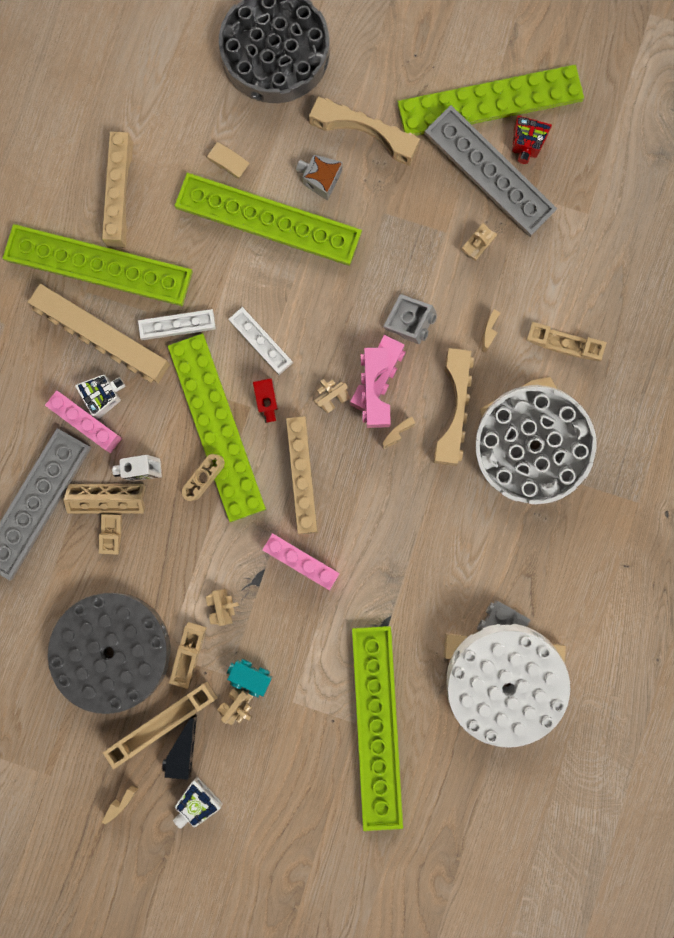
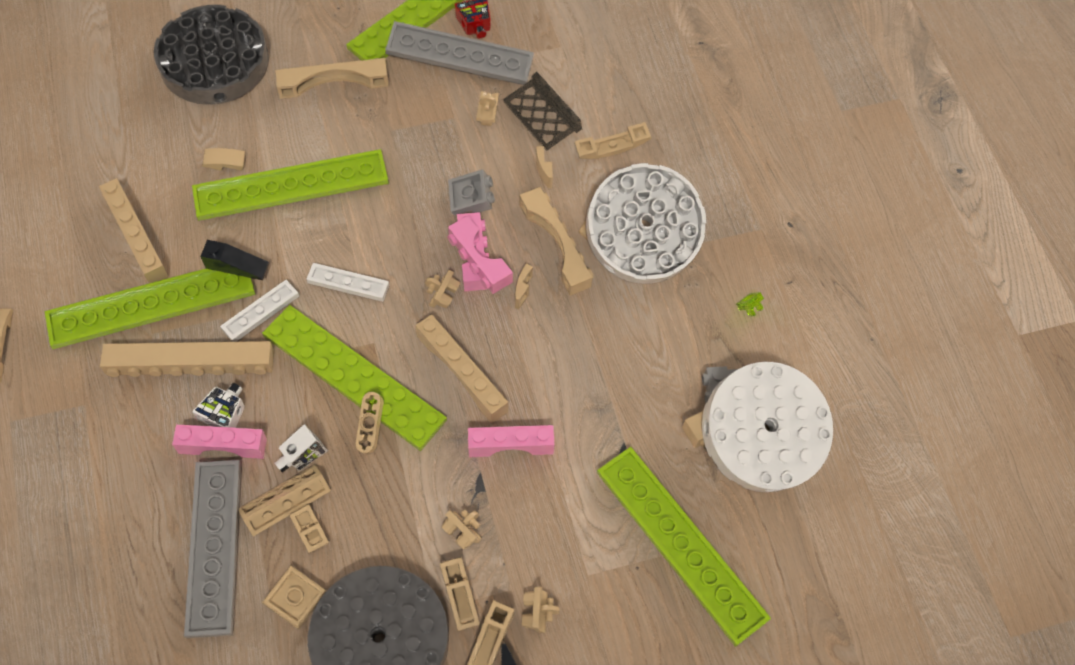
camera: 40 degrees left, 20 degrees down
(69, 581) = (294, 597): none -> tan plate
(178, 269) = (231, 260): none -> black slope
(244, 675) = (533, 572): teal brick -> none
(265, 389) = (384, 321): red torso -> none
(320, 174) = (315, 128): torso -> none
(541, 273) = (556, 105): none -> clear smoke fence
(577, 565) = (749, 302): none -> clear neon green tile

